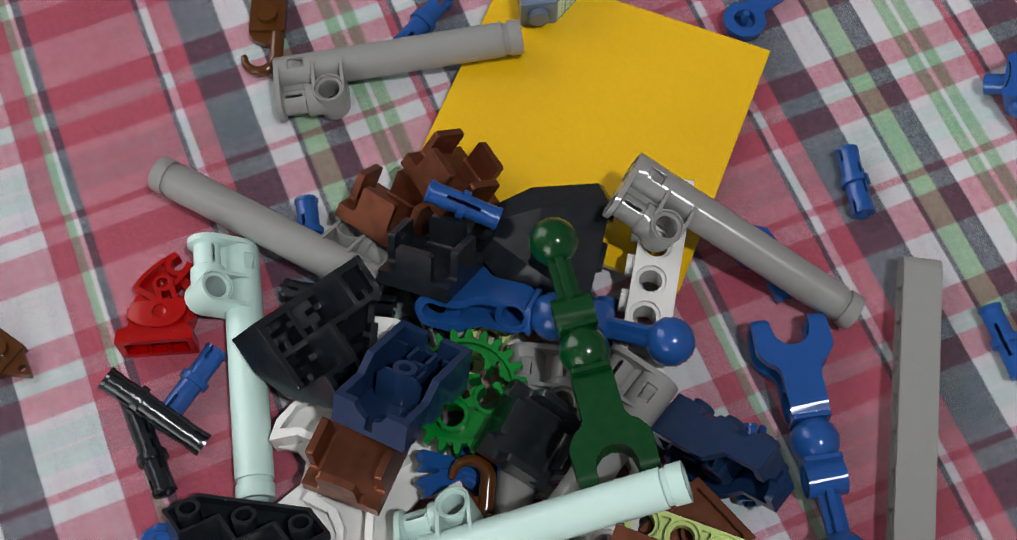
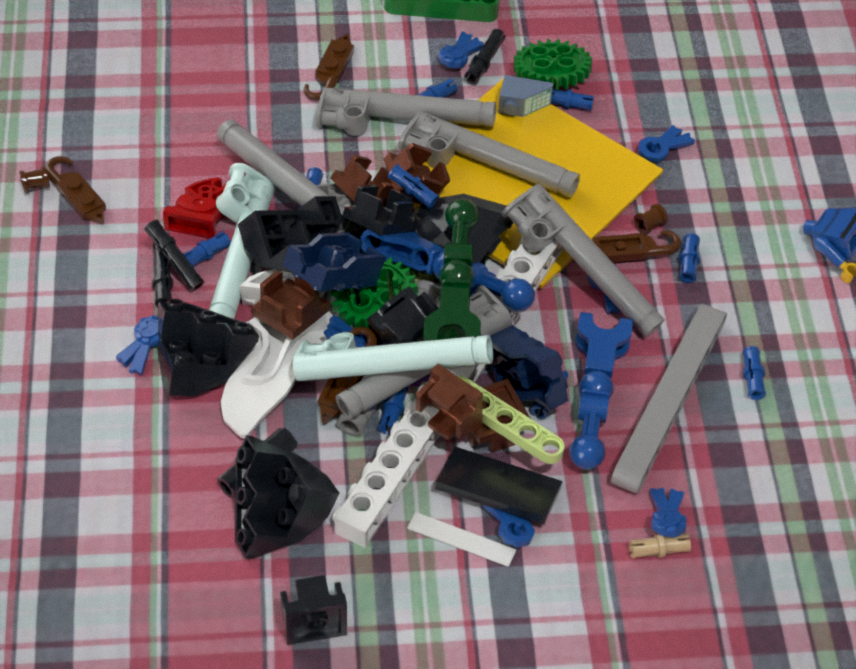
camera: 15 degrees right, 15 degrees down
(451, 93) = (447, 138): none -> light grey piece
(776, 187) = (635, 246): none -> reddish brown plate
(783, 136) = (650, 219): none -> reddish brown bush

